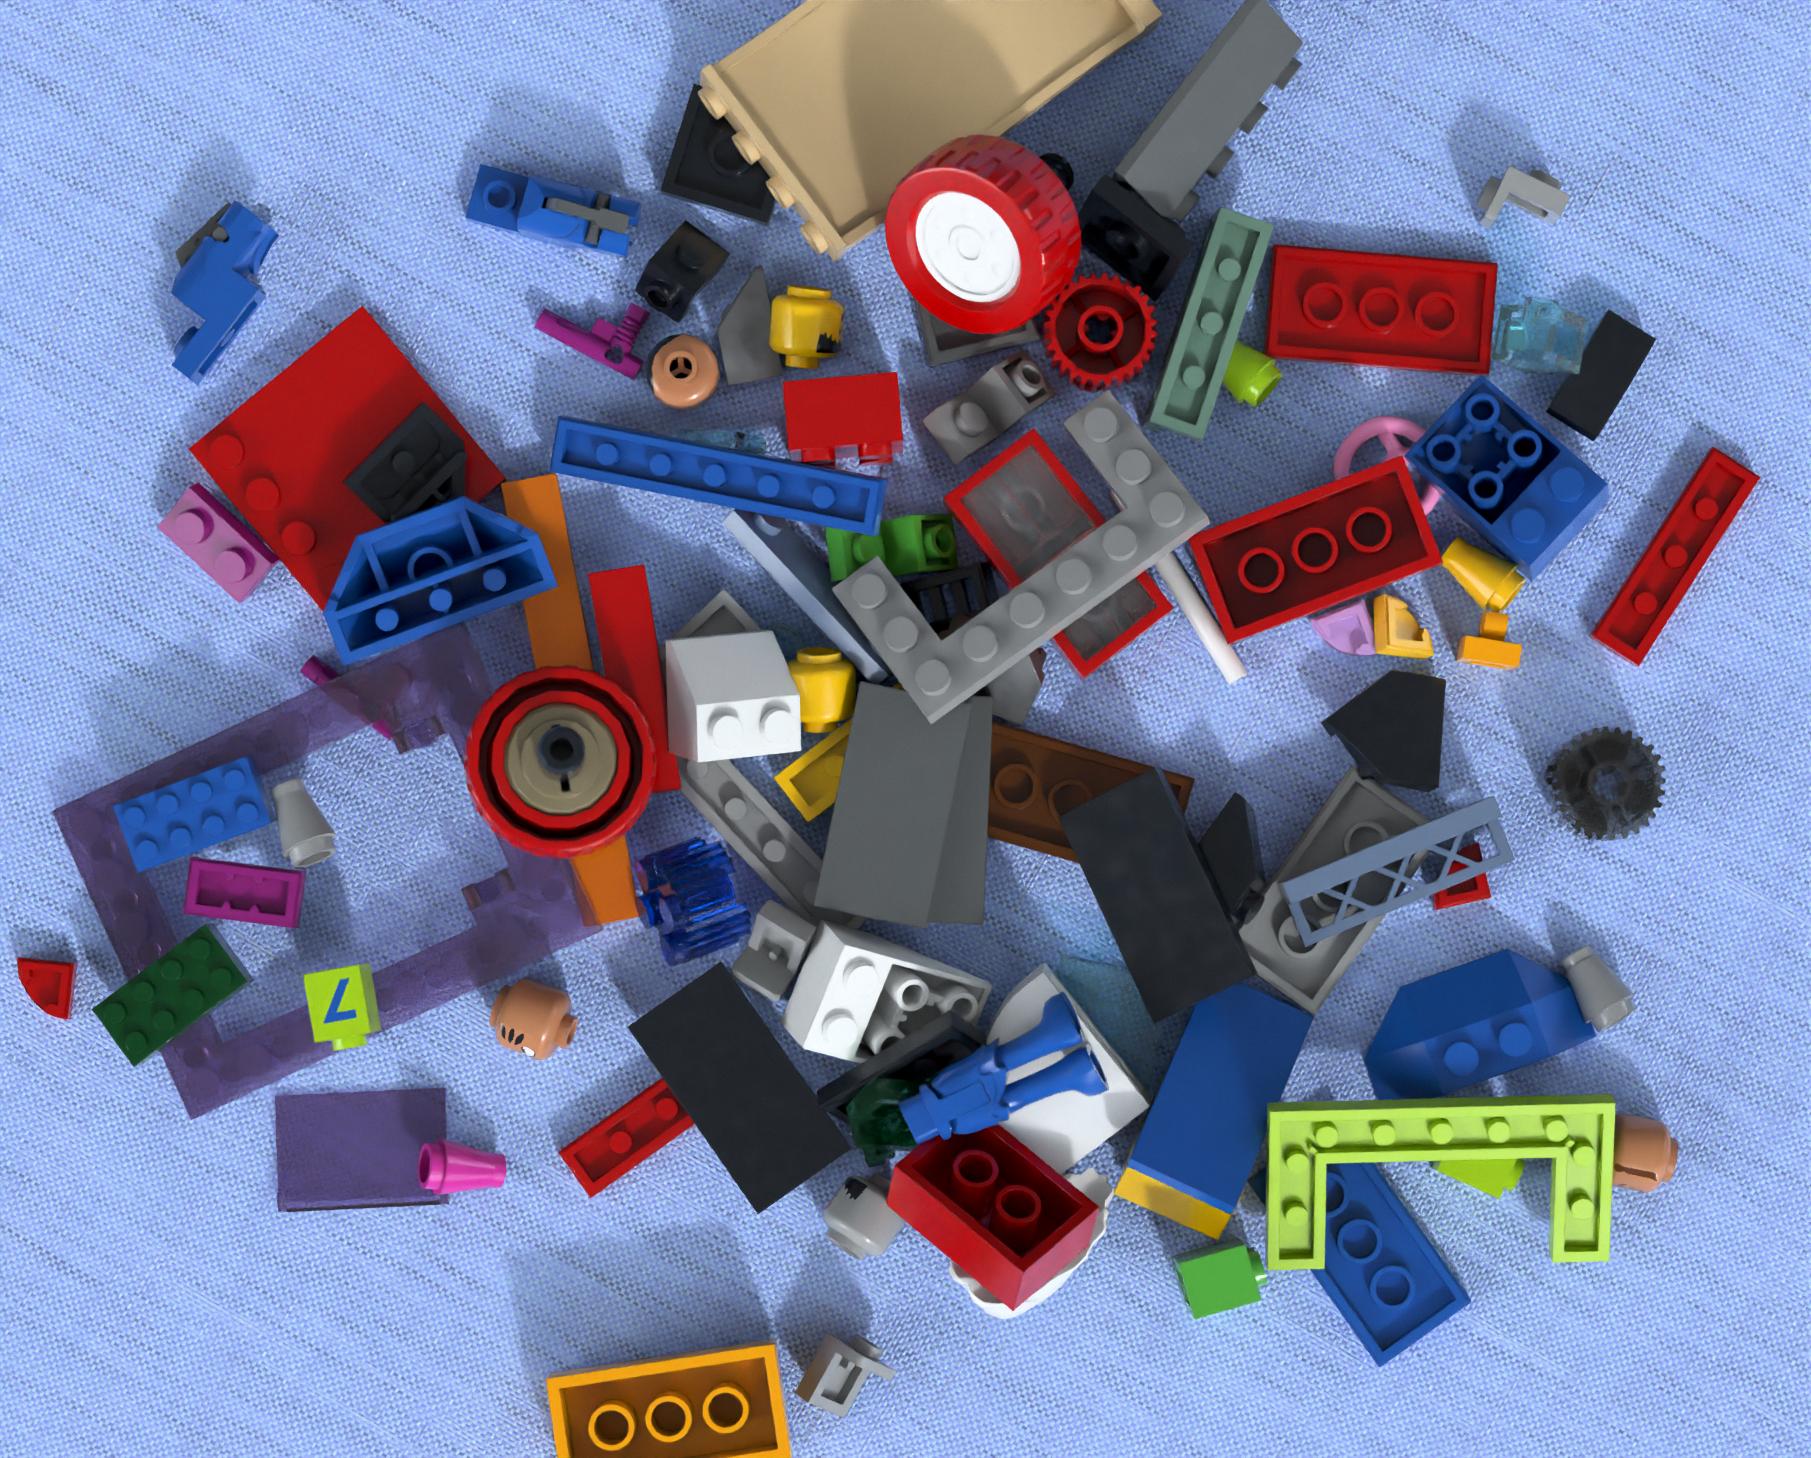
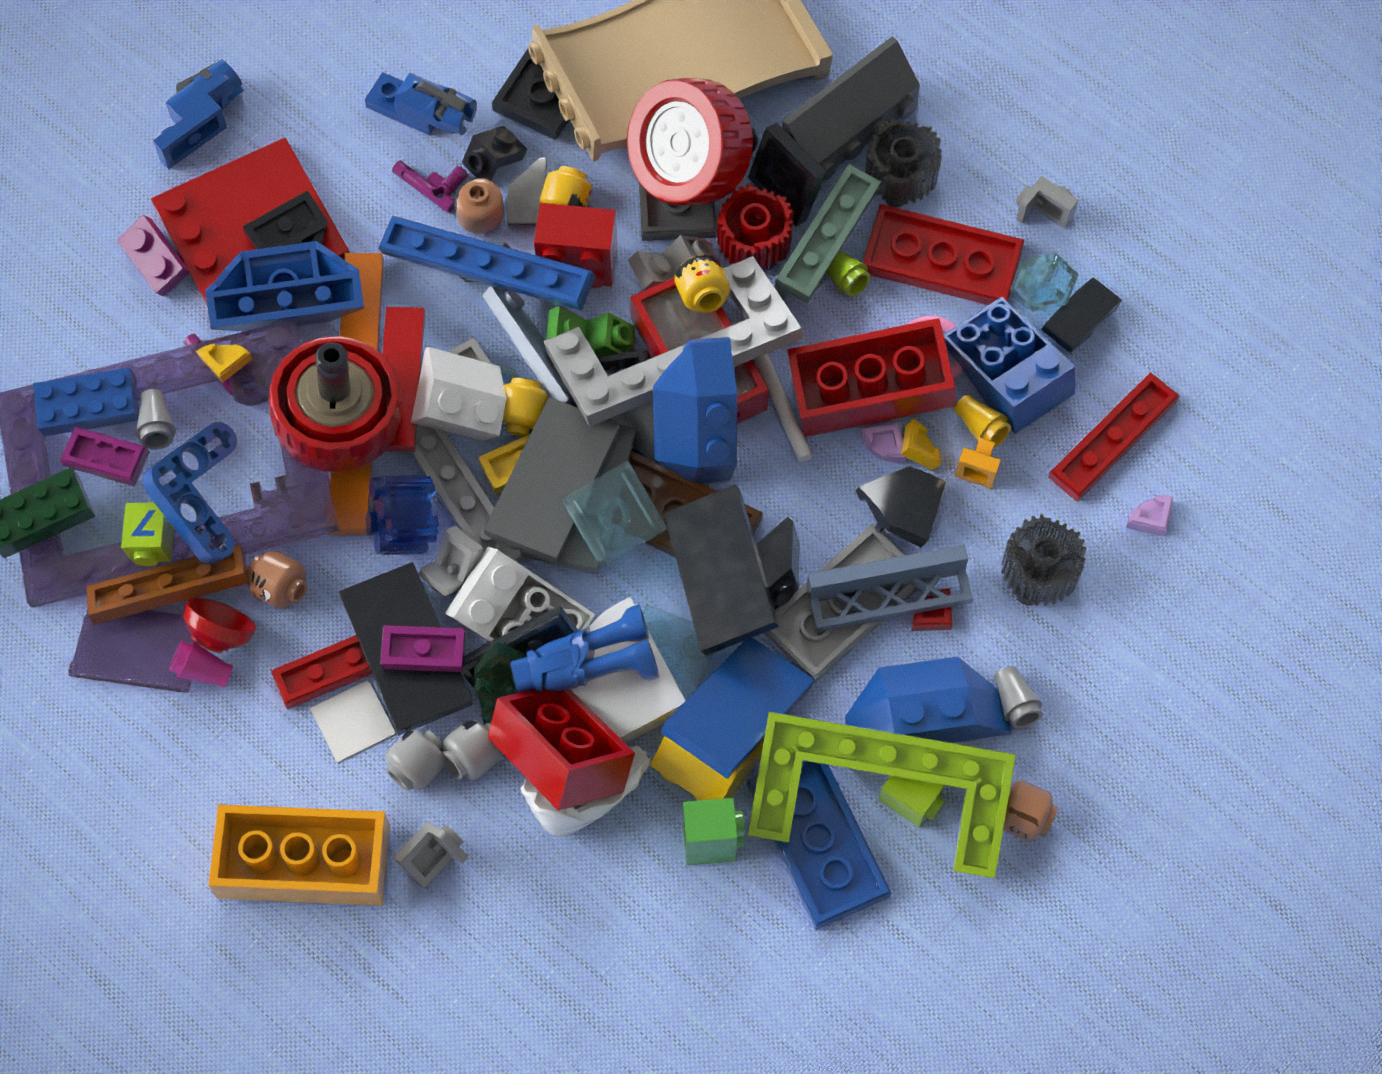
camera: 10 degrees right, 20 degrees down
(376, 710) = (224, 359): none -> yellow tile
(376, 939) = (182, 491): none -> blue beam
(387, 1062) = (164, 586): none -> dark orange plate
(474, 1096) = (217, 625): none -> red piece
(686, 1196) = (352, 720): none -> white sticker
(768, 1096) = (423, 648): none -> magenta plate
(791, 1245) = (415, 759): none -> light grey head
(991, 842) = (614, 514): none -> clear light blue plate
(1048, 468) = (702, 284): none -> yellow head
(1085, 676) = (698, 412): none -> blue wedge
(1297, 143) = (904, 161): none -> clear smoke brick
(1745, 670) = (1152, 515): none -> lavender tile

